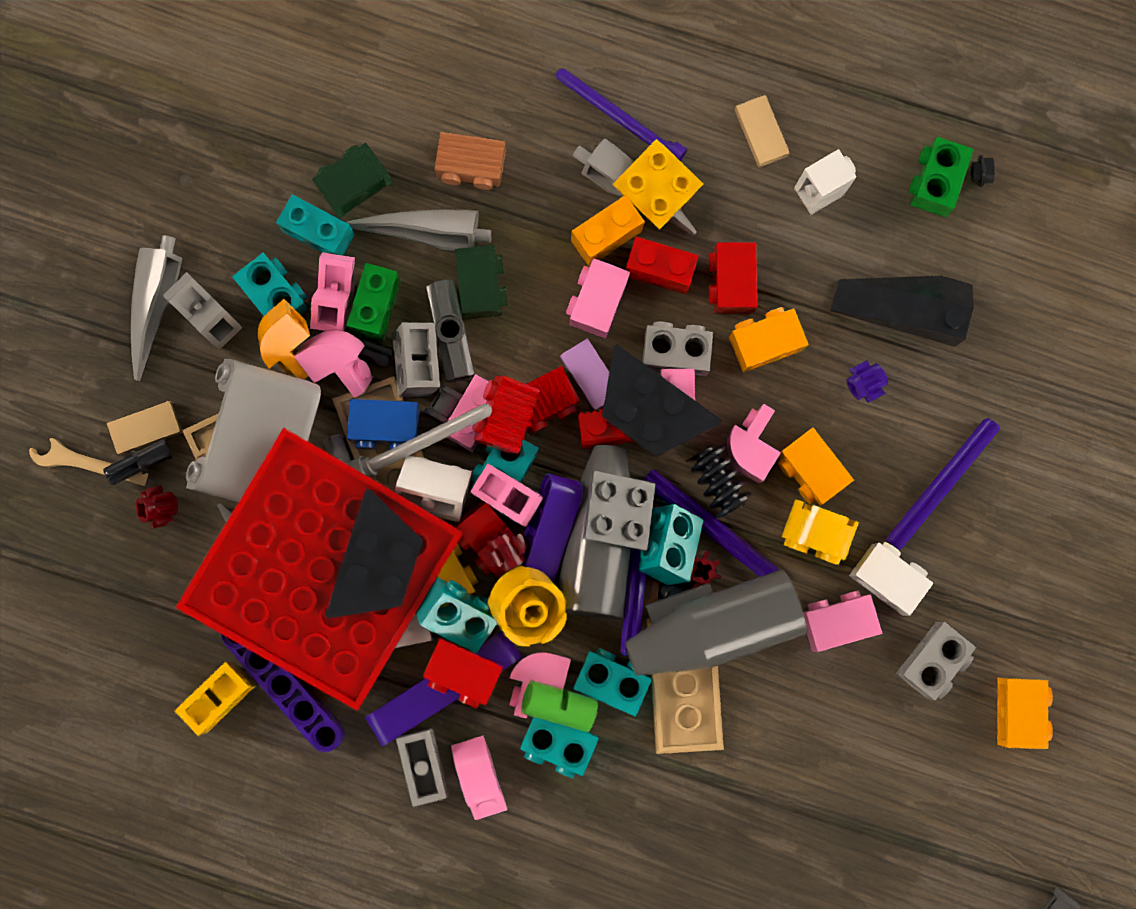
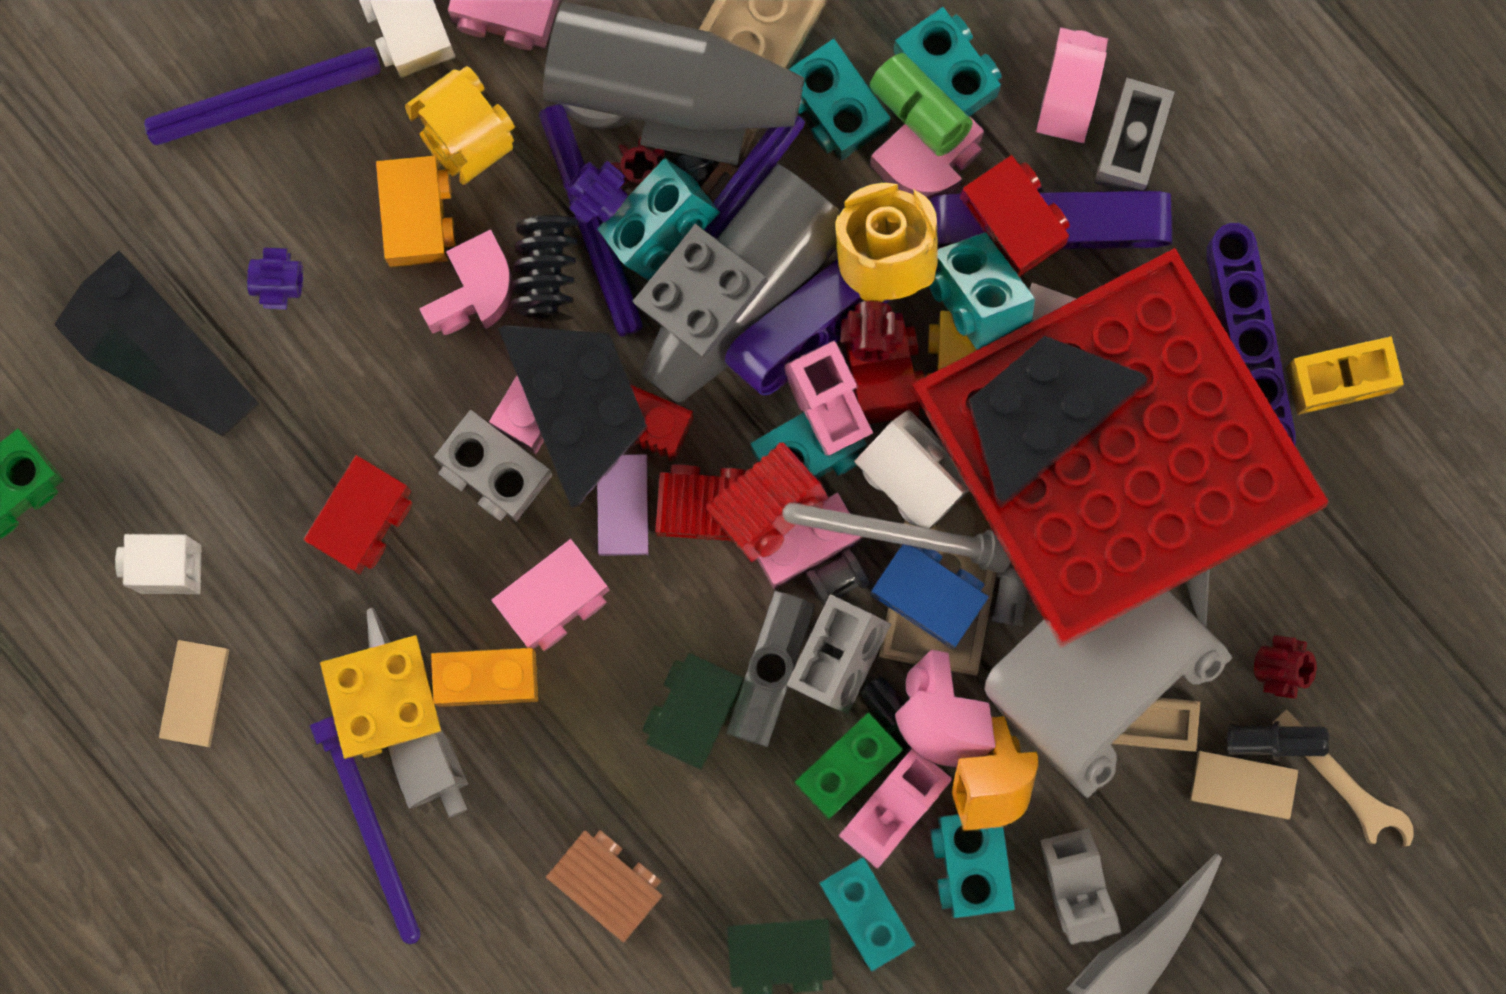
camera: 140 degrees left, 0 degrees up
(438, 228) = (702, 821): light grey piece -> none
(661, 265) = (443, 588): red brick -> none
(716, 538) = (596, 192): none -> dark purple gear
(768, 339) = (366, 409): light orange brick -> none

